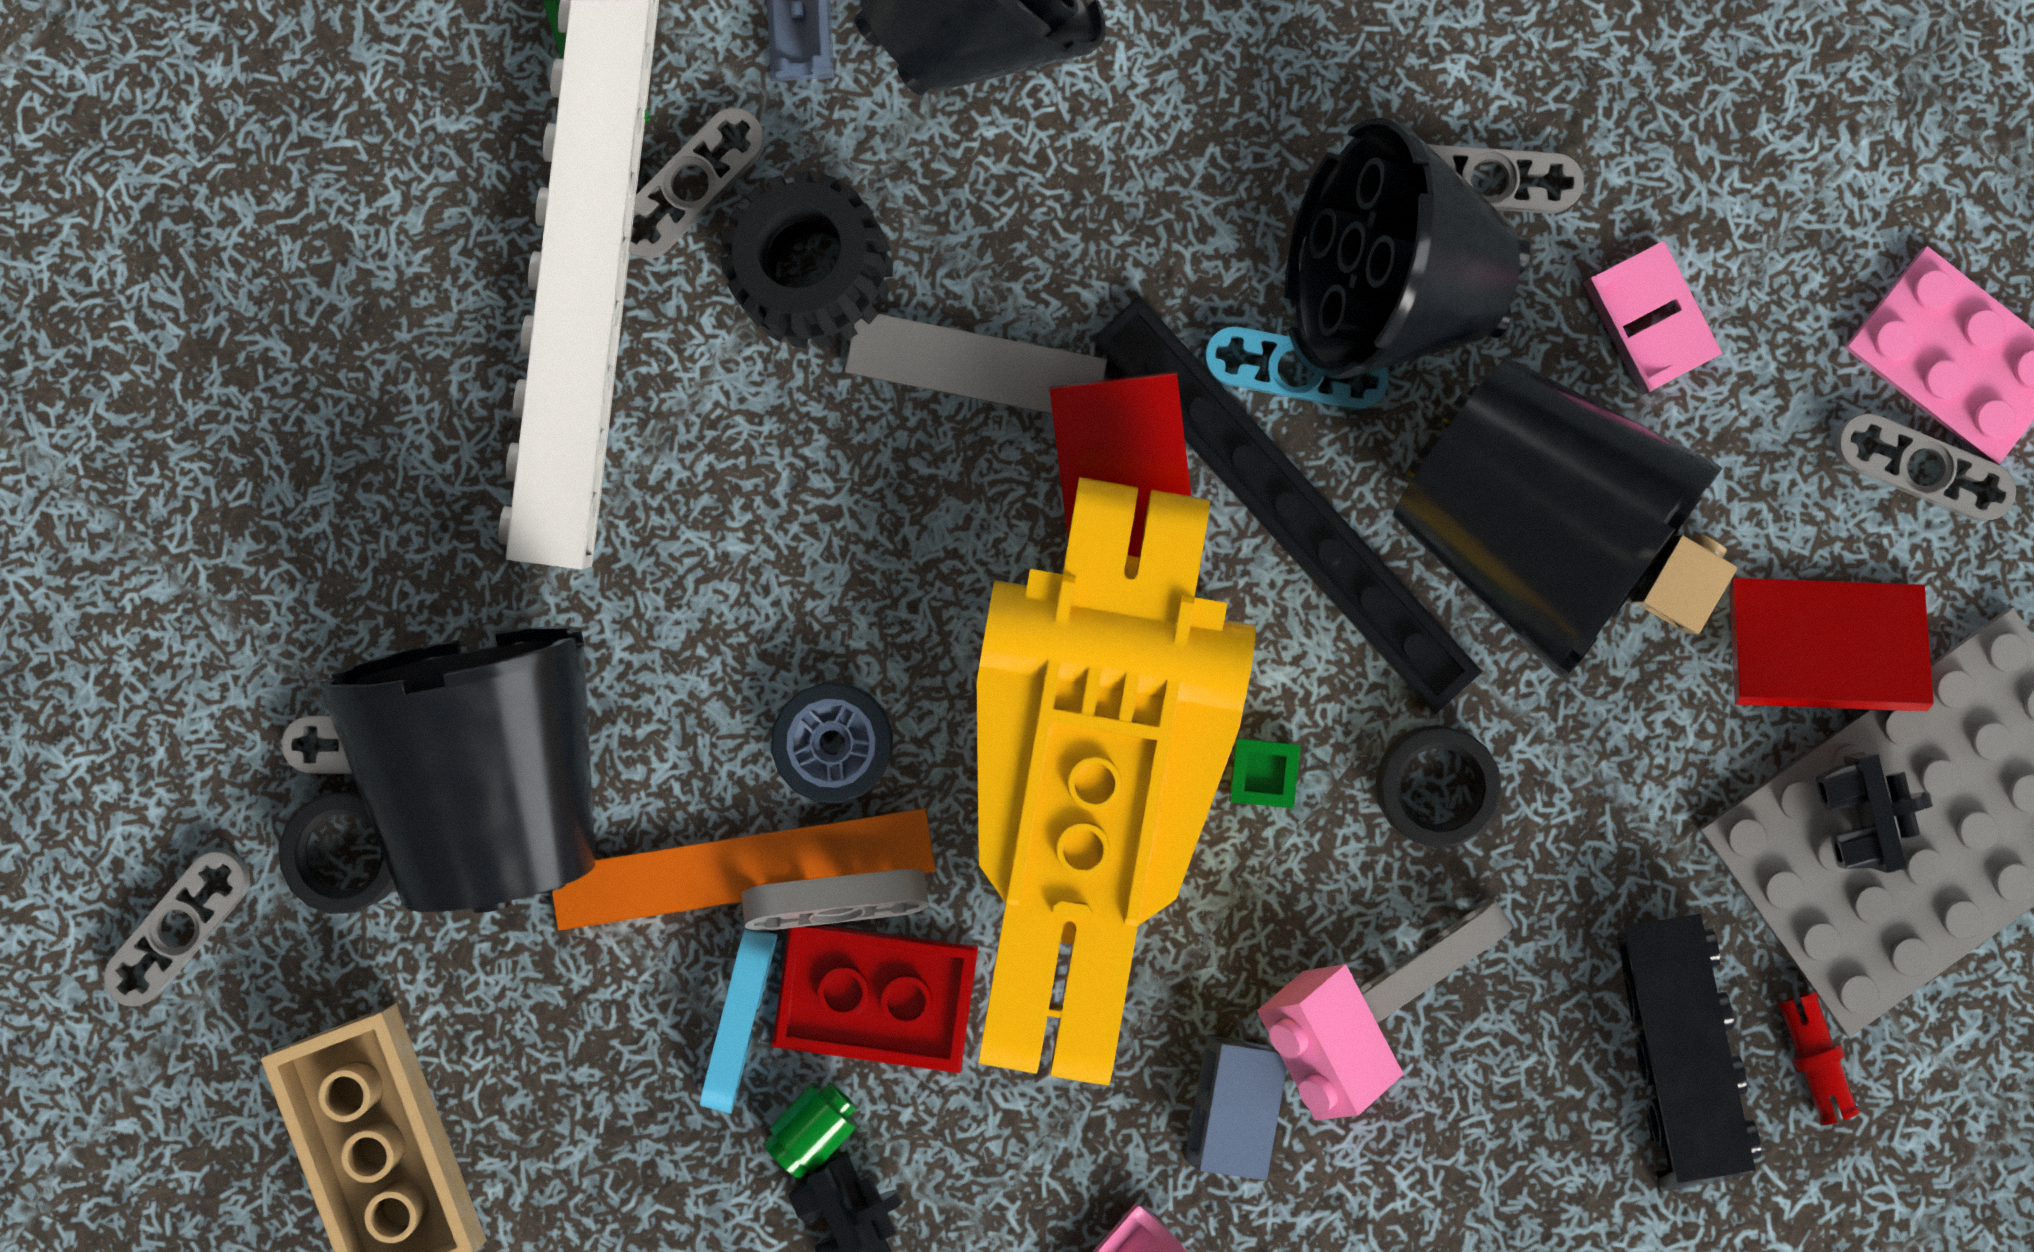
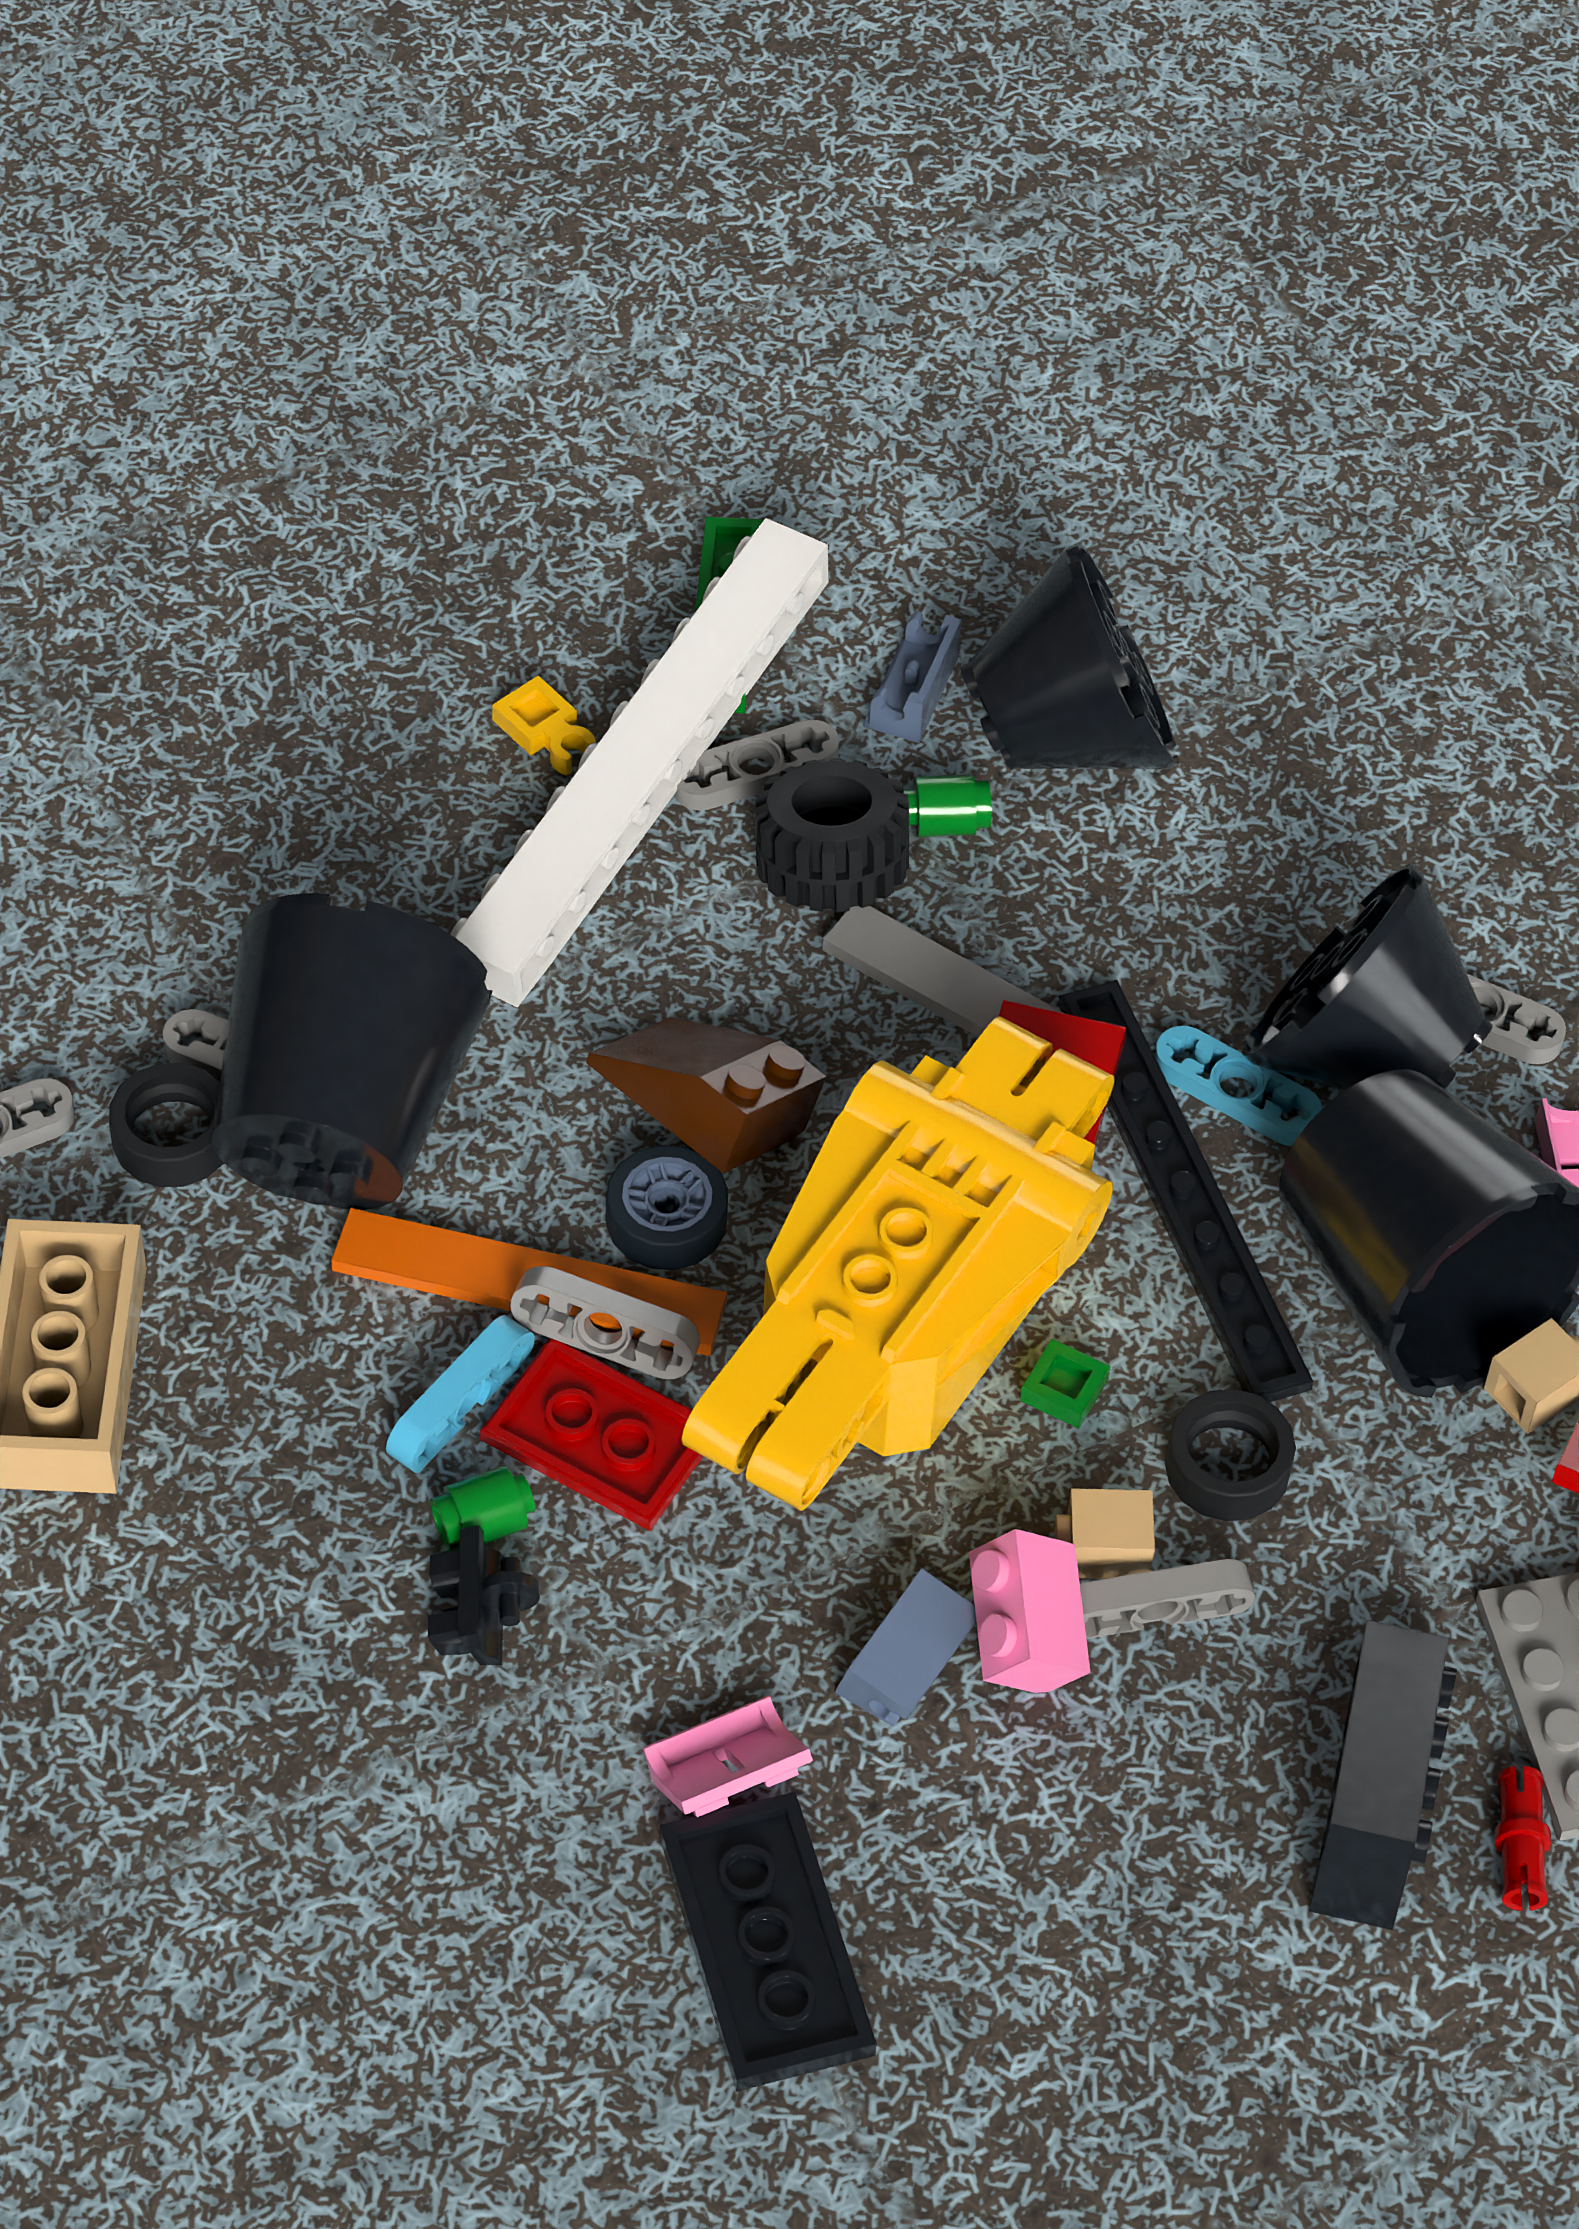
camera: 20 degrees right, 35 degrees down
(460, 225) = (542, 718): none -> yellow plate
(811, 600) = (714, 1086): none -> reddish brown slope
(898, 160) = (949, 805): none -> green brick
(1362, 920) = (1109, 1531): none -> tan brick

